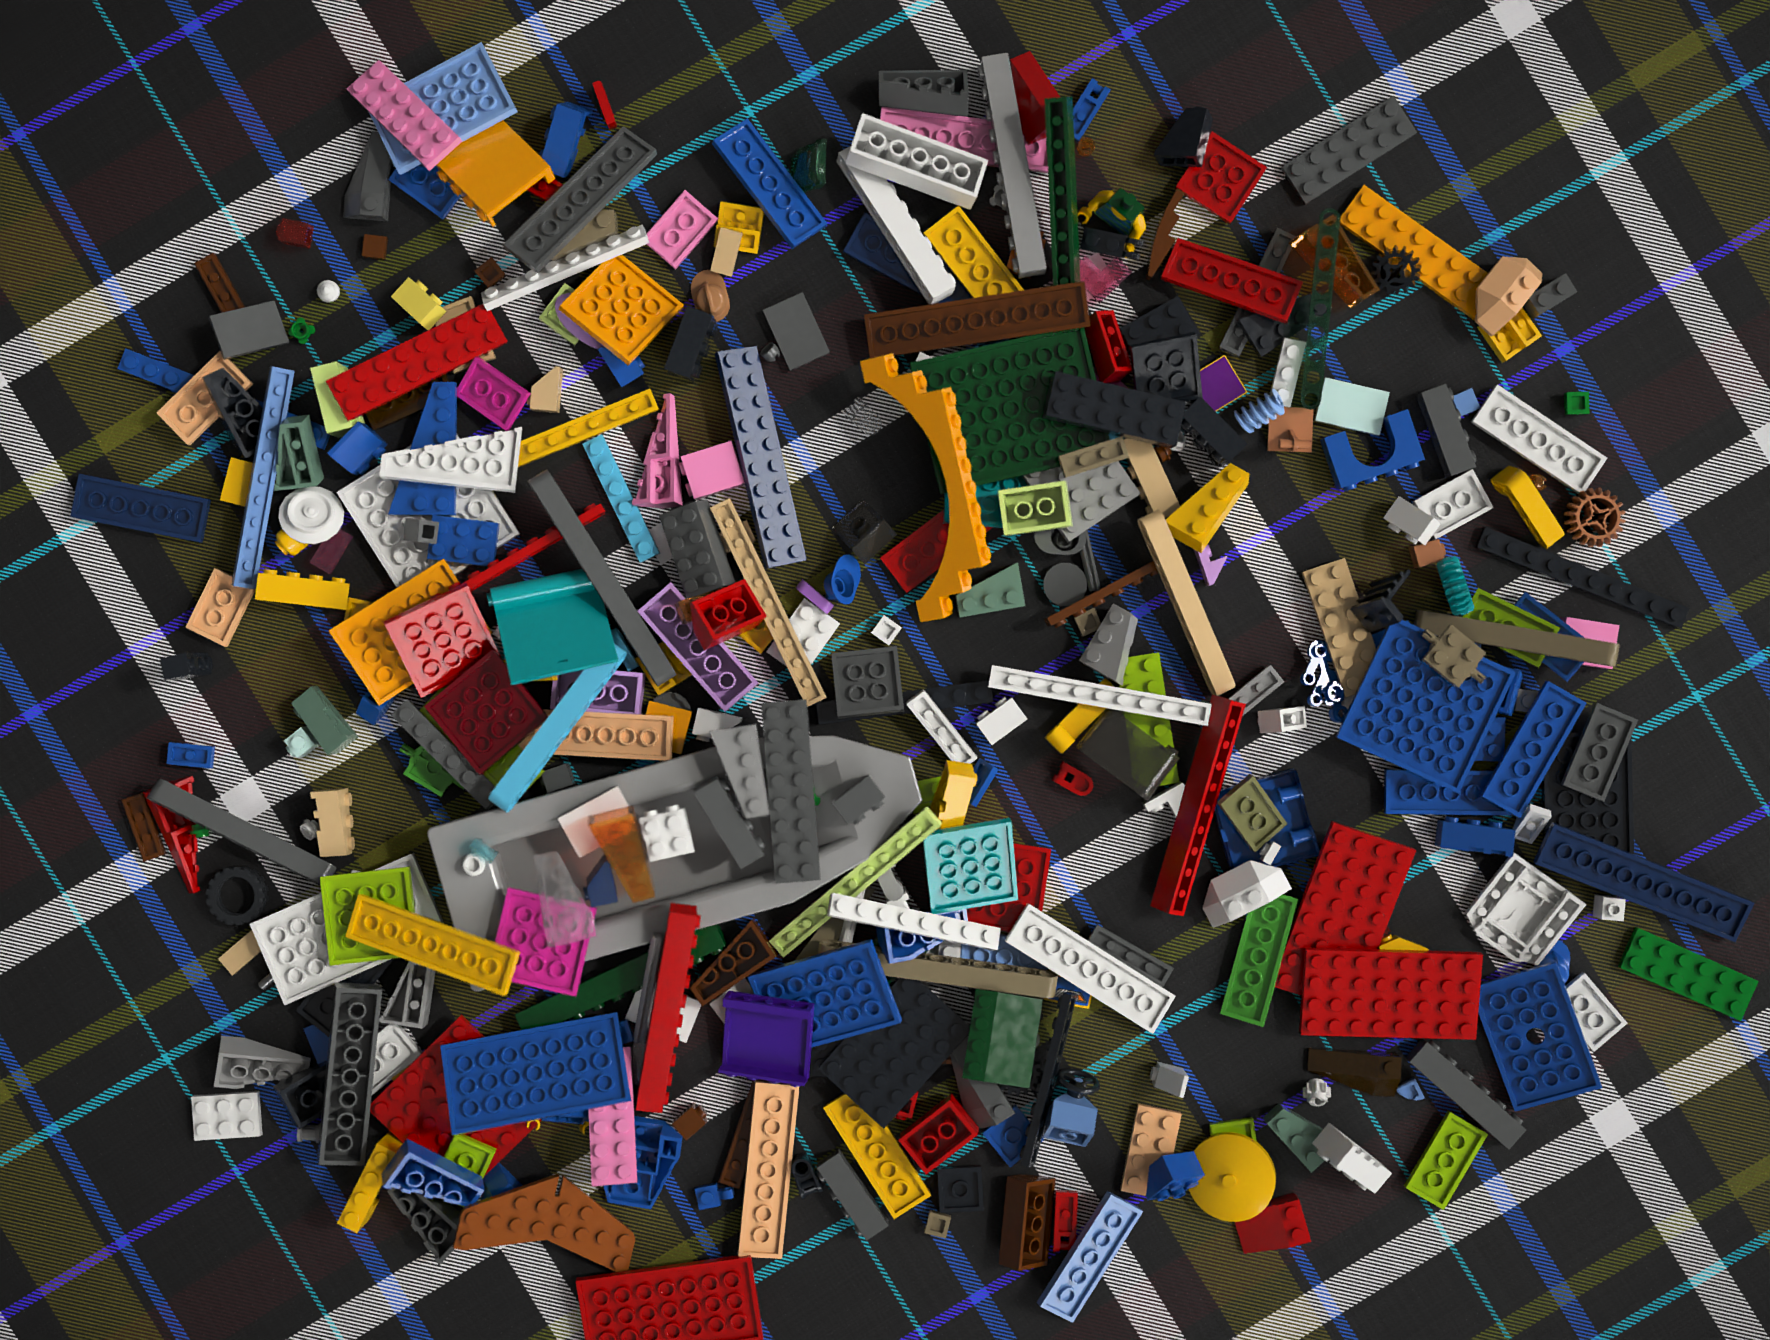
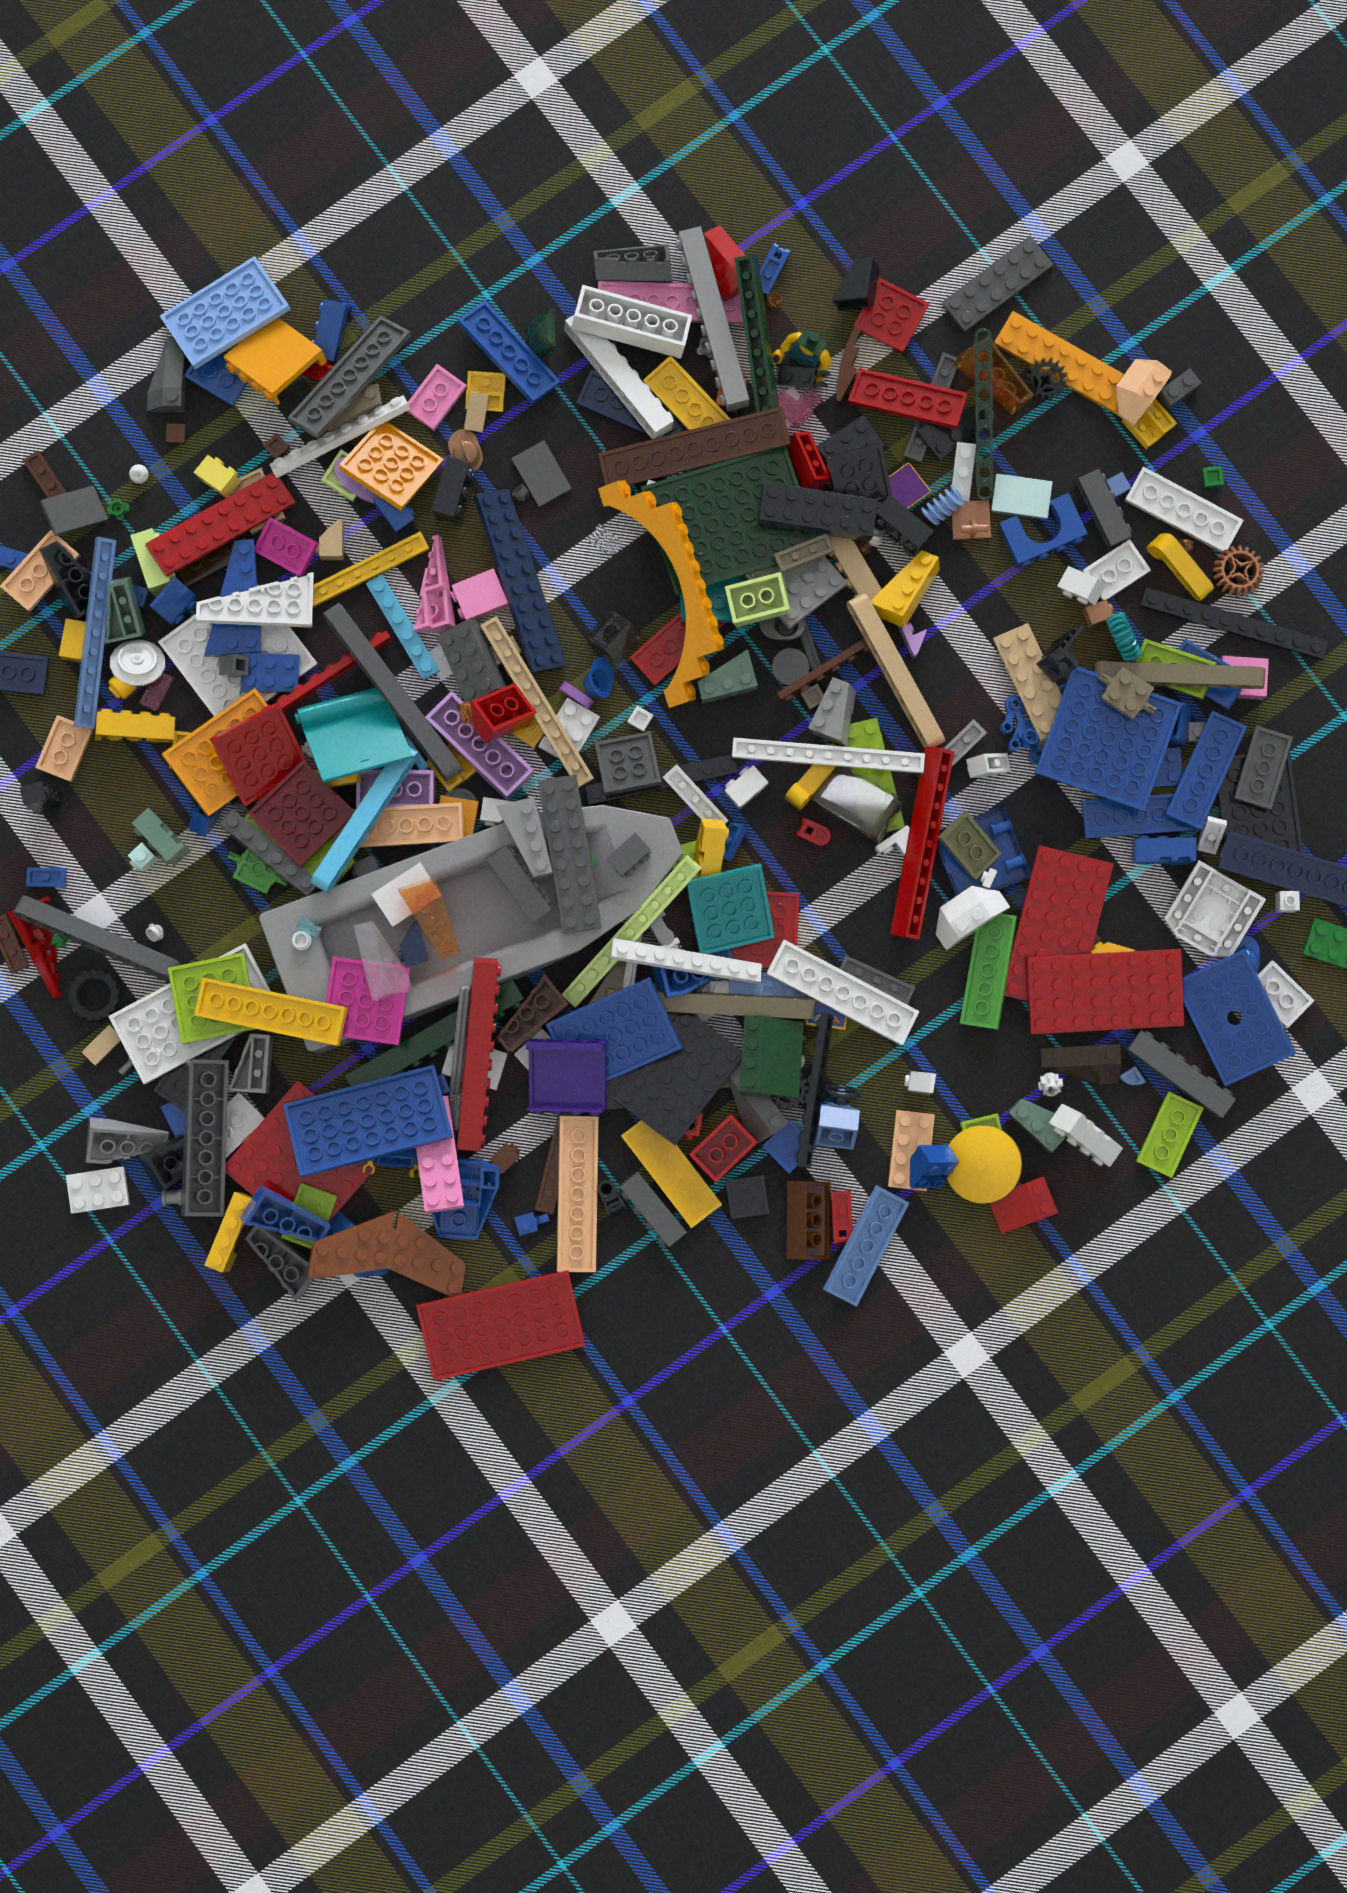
camera: 10 degrees left, 5 degrees down
(295, 233) = (107, 427): clear red brick -> none
(334, 822) = (175, 922): tan wedge -> none
(404, 115) = (194, 320): bright pink plate -> none
(605, 105) = (363, 299): red tile -> none
(666, 833) = (466, 898): white plate -> none
(937, 1224) = (730, 1230): dark tan plate -> none

